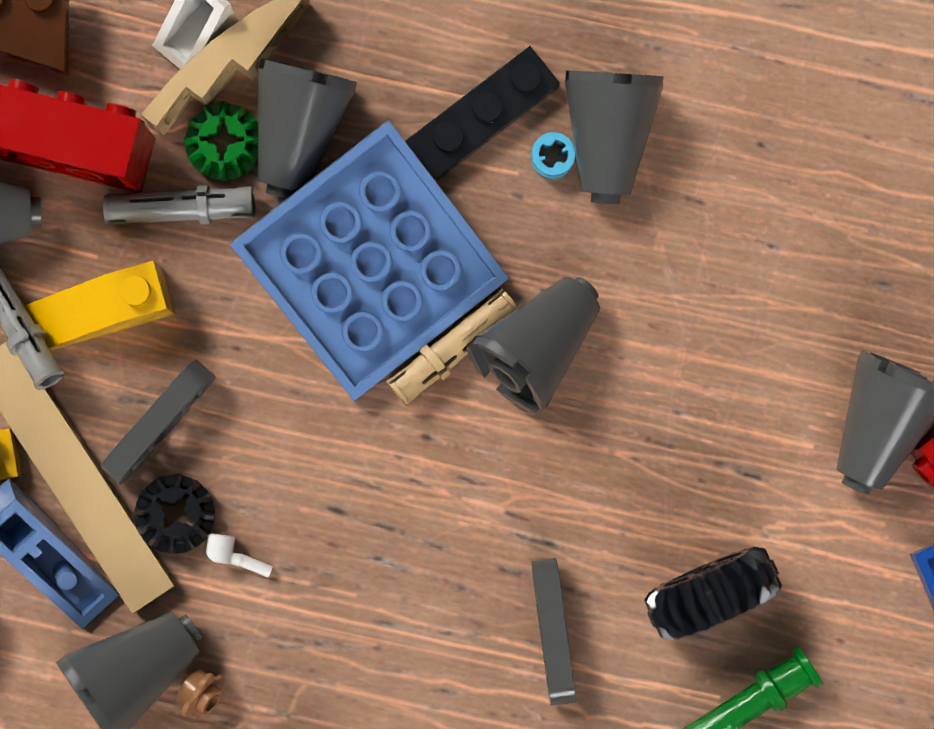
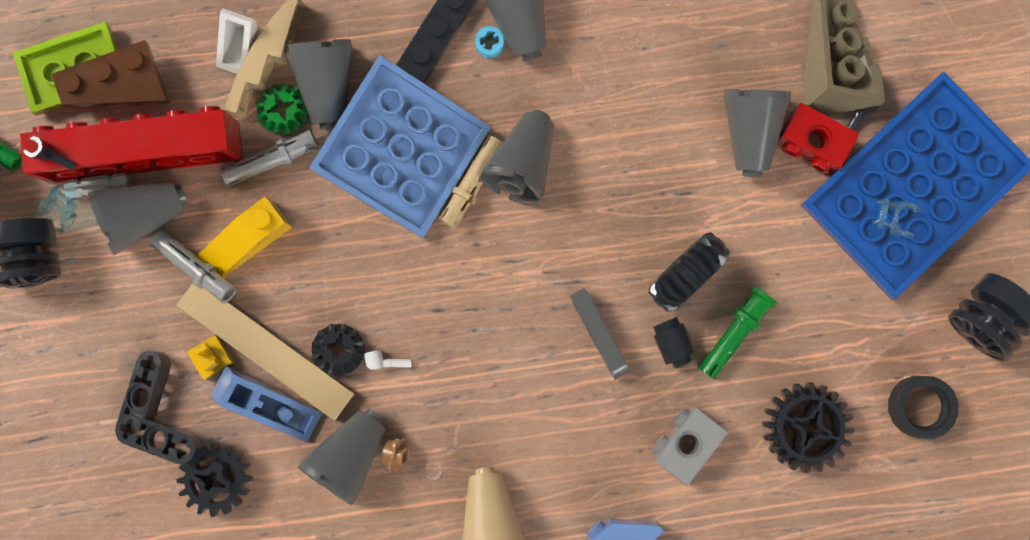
camera: 15 degrees left, 0 degrees up
(158, 422) = (306, 296): dark grey beam -> none
(654, 684) = (674, 342): none -> black brick

